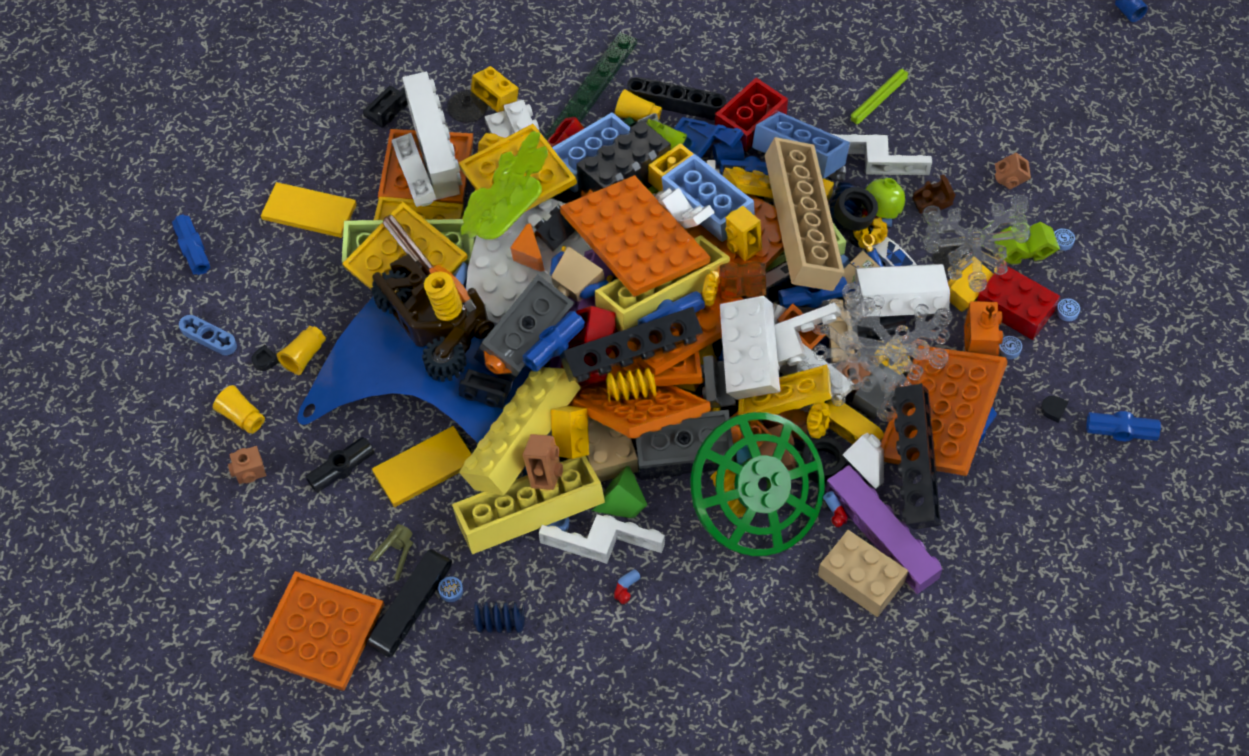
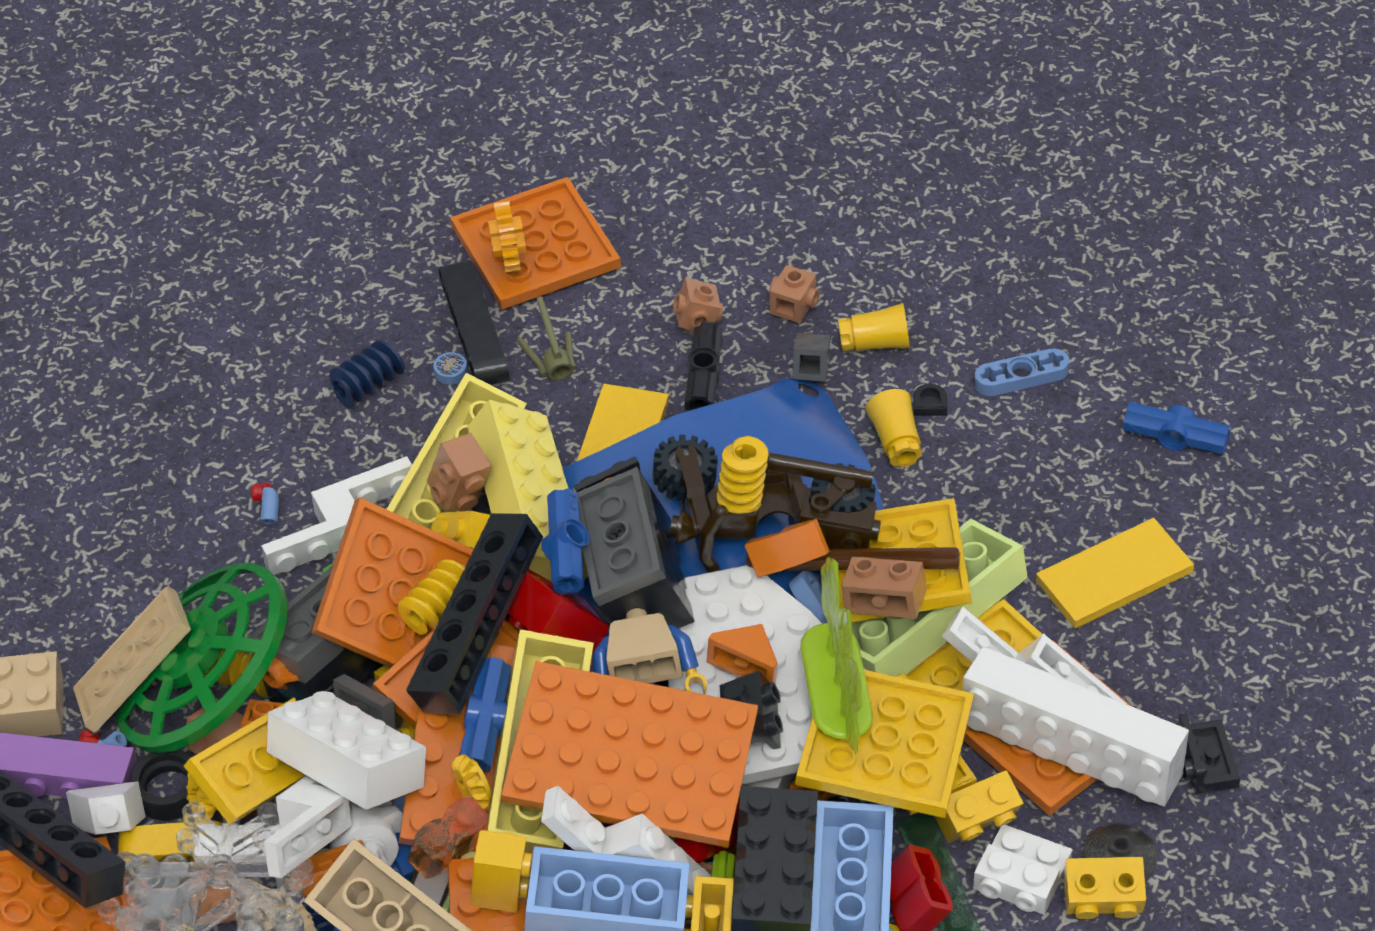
camera: 135 degrees right, 10 degrees down
(287, 420) = (811, 357): none -> dark grey brick
(299, 499) = (697, 304): none -> nougat brick
(344, 613) = (507, 236): none -> light orange gear
(434, 229) = (884, 587): none -> nougat brick
(790, 516) = (131, 658): none -> tan tile

